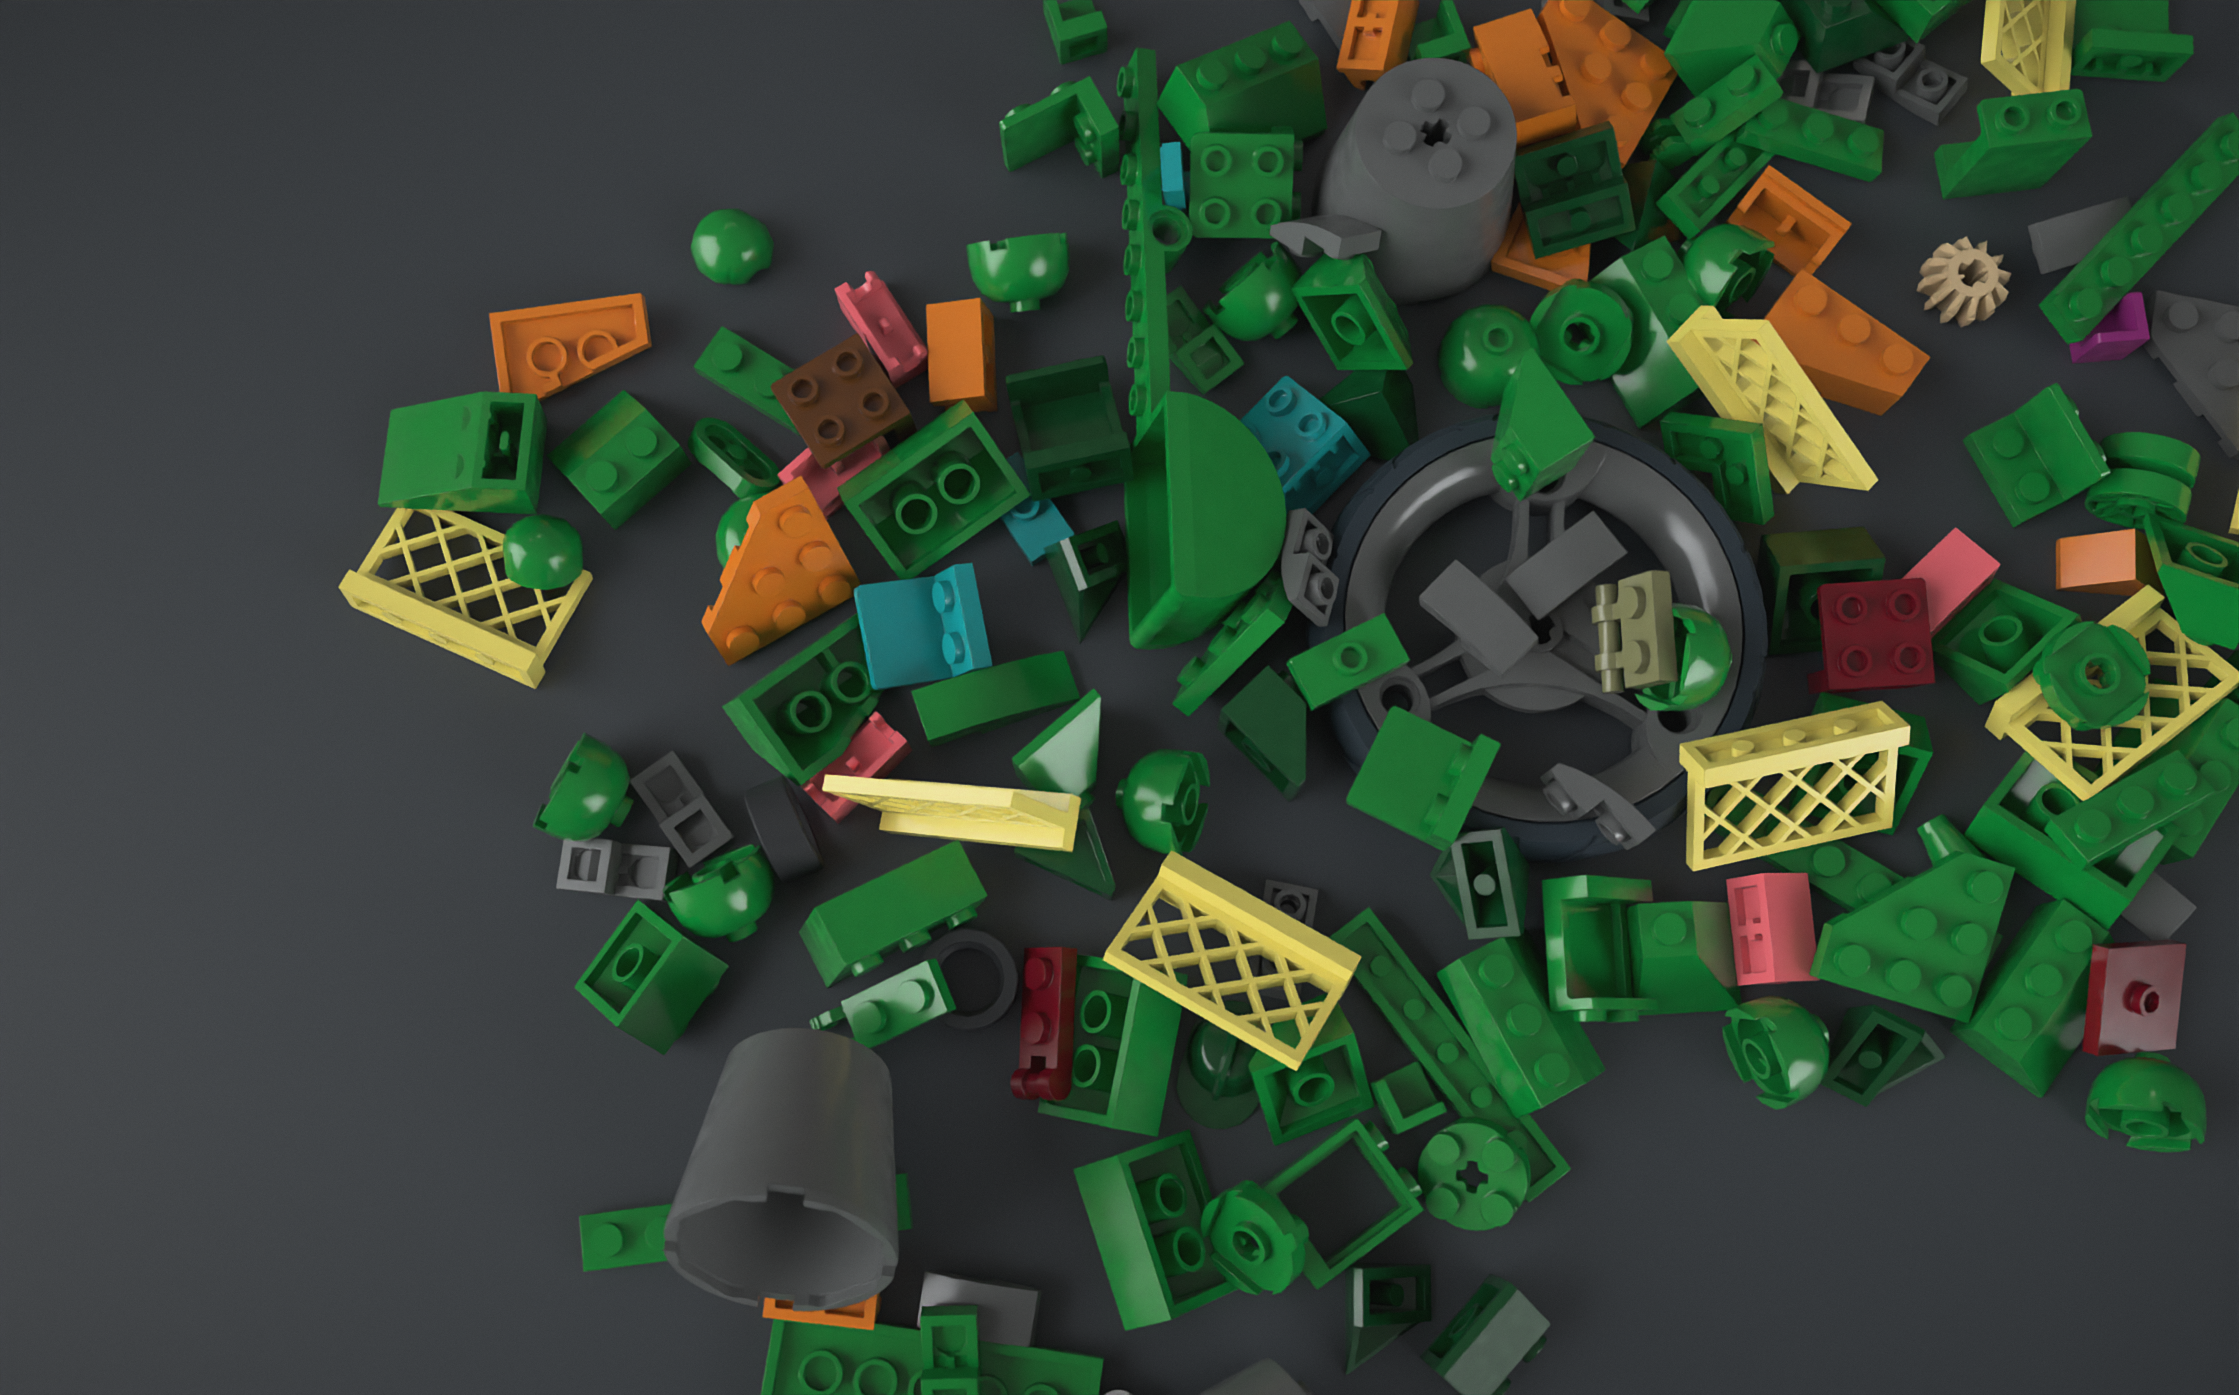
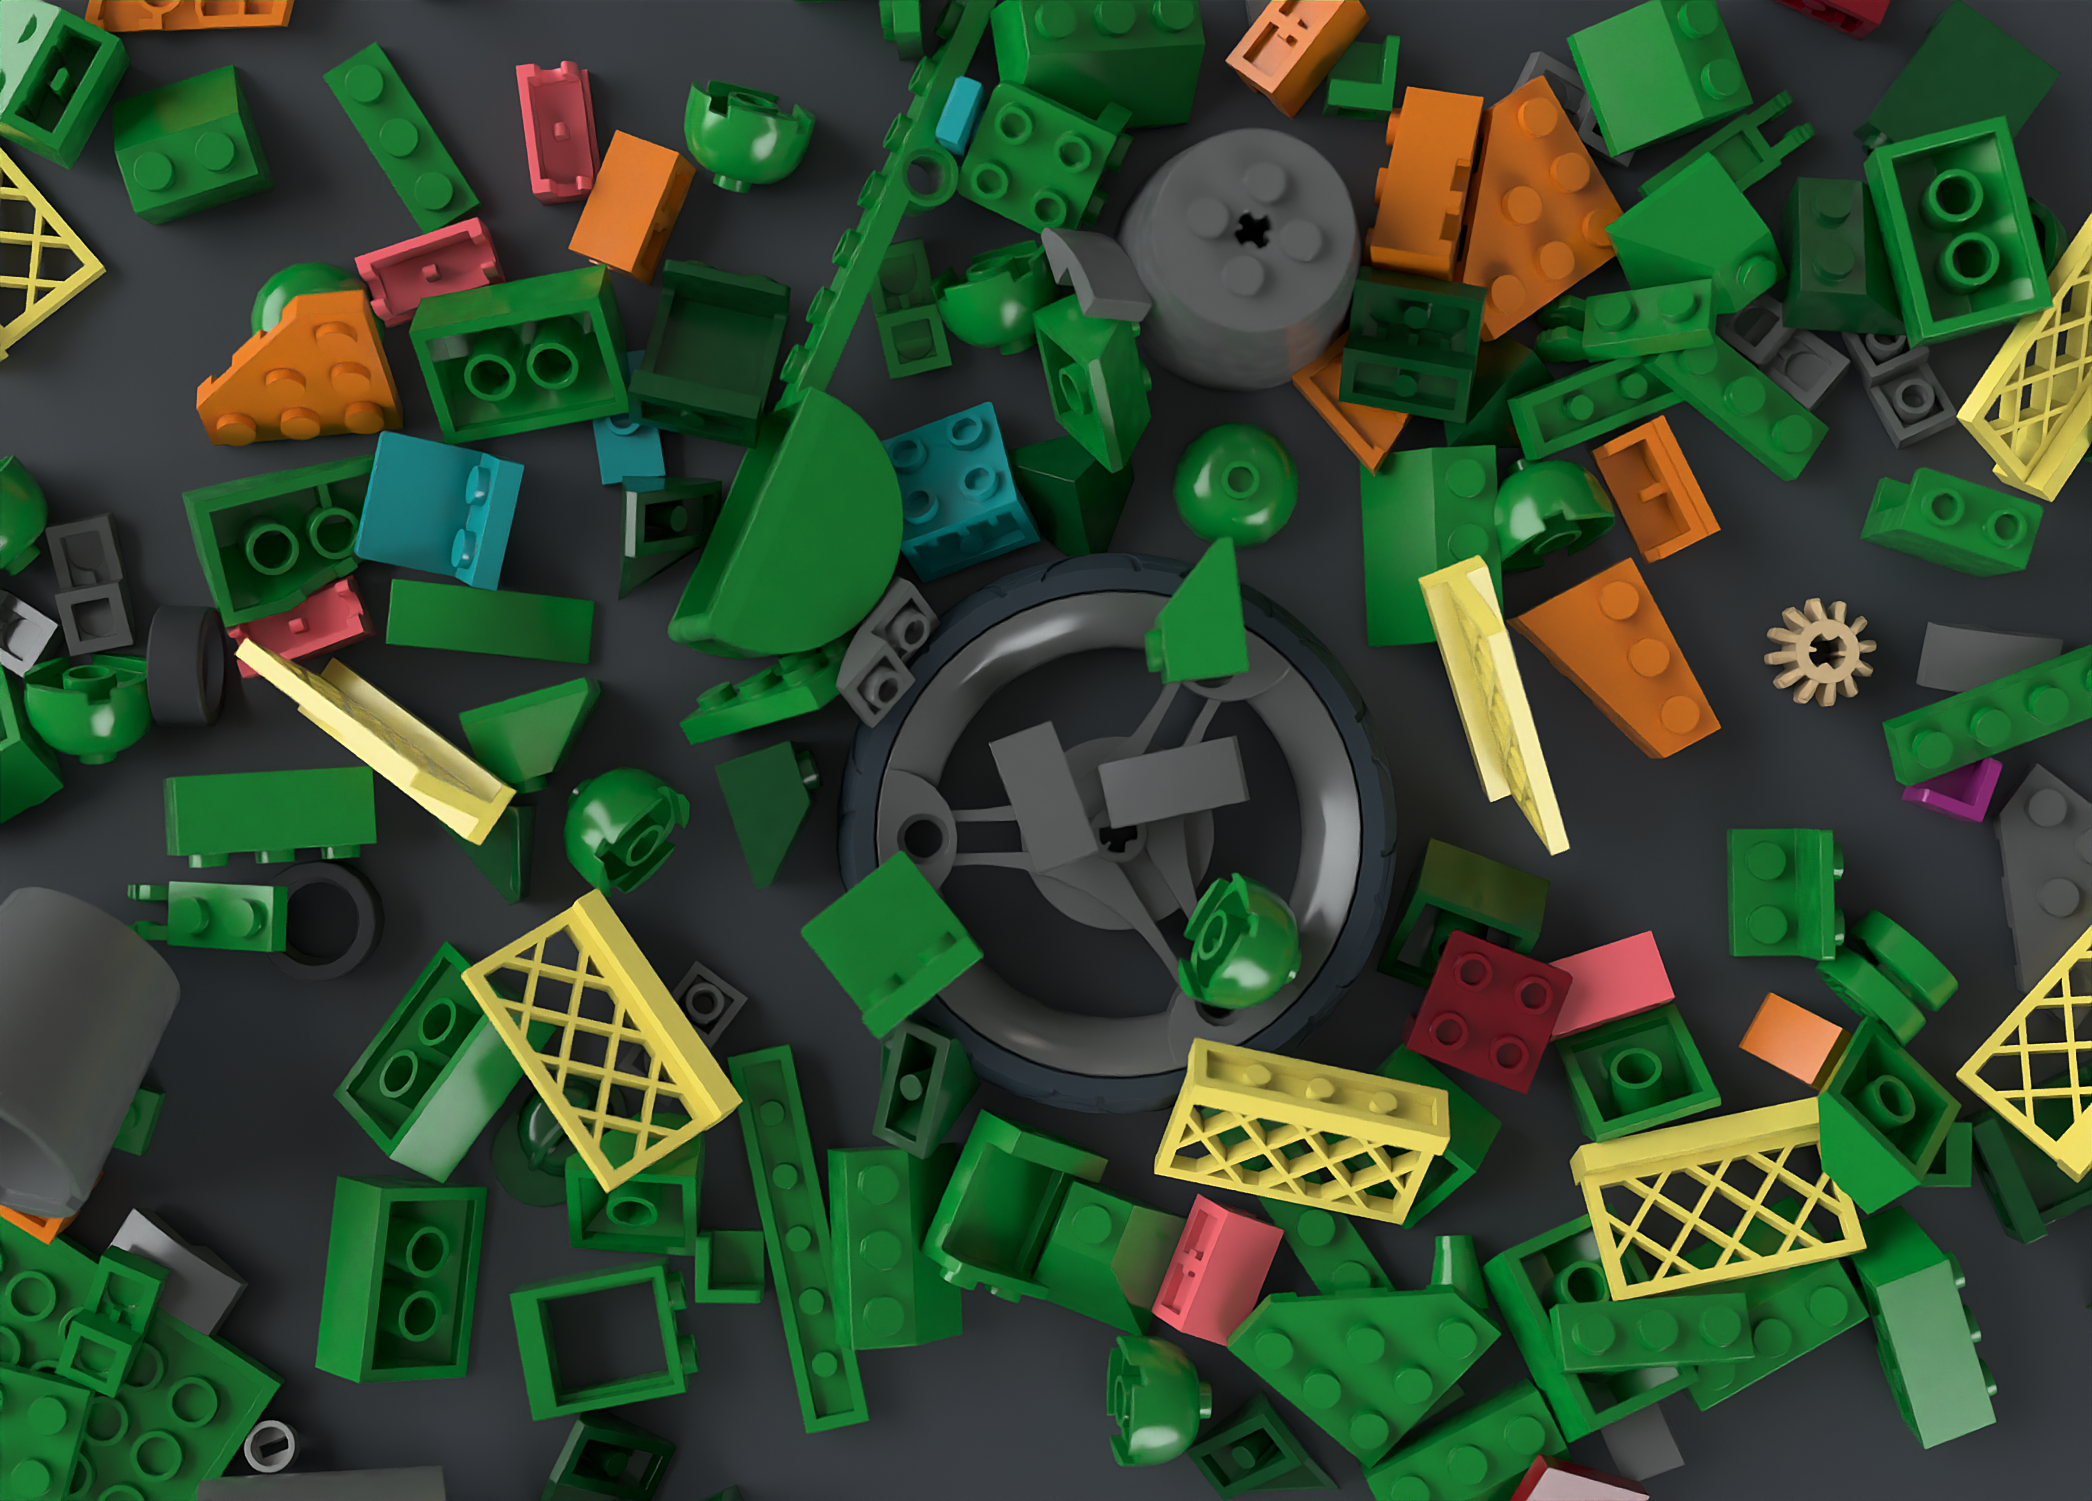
camera: 30 degrees right, 10 degrees up
(542, 552) = (57, 221): green hair -> none
(732, 457) = (323, 213): green plate -> none
(842, 402) = (467, 206): reddish brown bracket -> none
(1046, 1024) = (381, 1007): dark red plate -> none
(1255, 1213) = (491, 1339): green plate -> none
(1348, 661) = (878, 778): green plate -> none
(1451, 1196) = (729, 1383): green plate -> none
(1578, 793) = (1052, 1040): dark grey slope -> none
(1609, 323) = (1373, 495): green plate -> none
(1646, 631) = (1203, 897): olive plate -> none
(1734, 456) = (1438, 735): green plate -> none
(2065, 683) = (1725, 1193): green plate -> none

